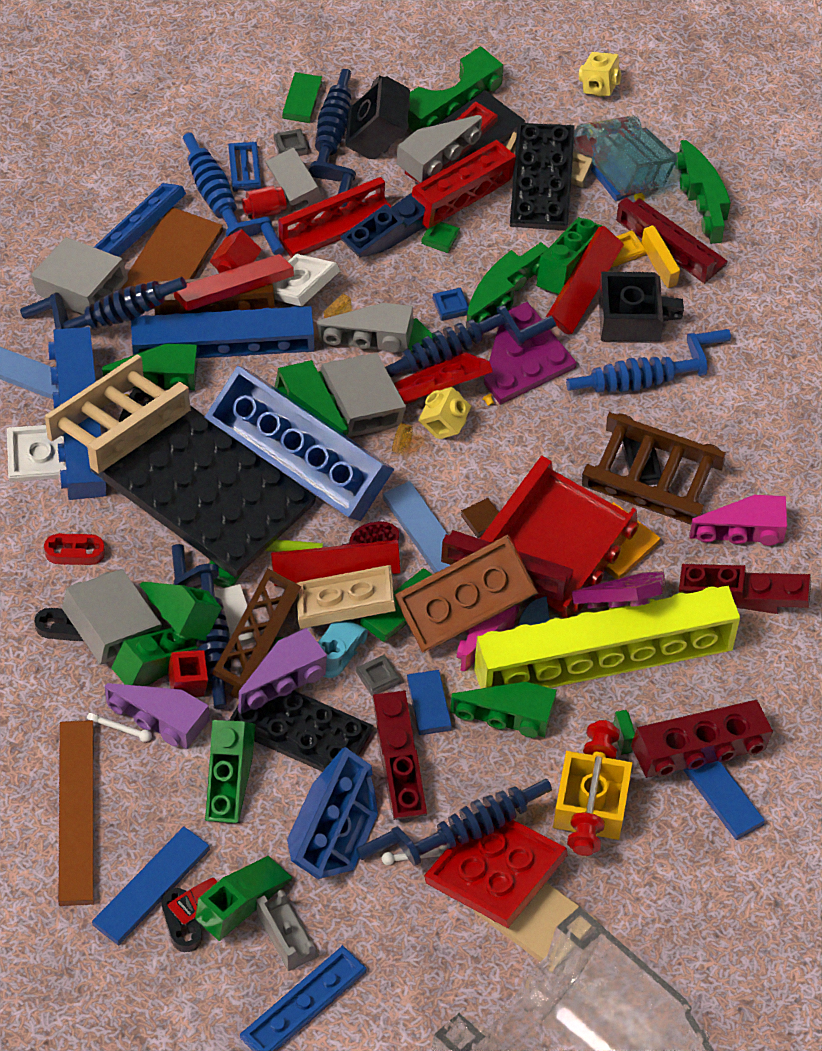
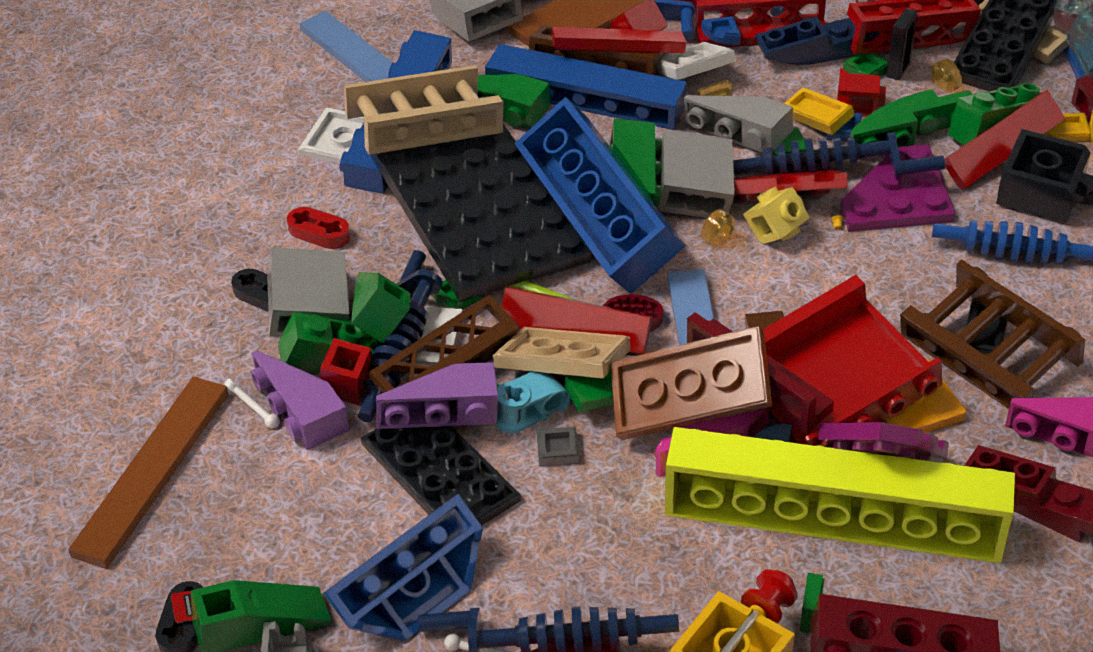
camera: 30 degrees right, 10 degrees down
(113, 309) = (485, 29): dark blue piece -> none
(150, 885) = (157, 576): blue tile -> none
(228, 769) = (333, 478): green slope -> none
(308, 238) = (722, 30): none -> blue tile
(399, 755) = (526, 534): dark red slope -> none
(426, 296) = (819, 110): none -> yellow tile
(429, 702) = (598, 493): blue tile -> none
(451, 269) = (861, 92): none -> red window
(468, 211) = (902, 44): none -> black tile
(511, 227) = (946, 75): none -> clear yellow tile
(514, 706) = (692, 527): green slope -> none

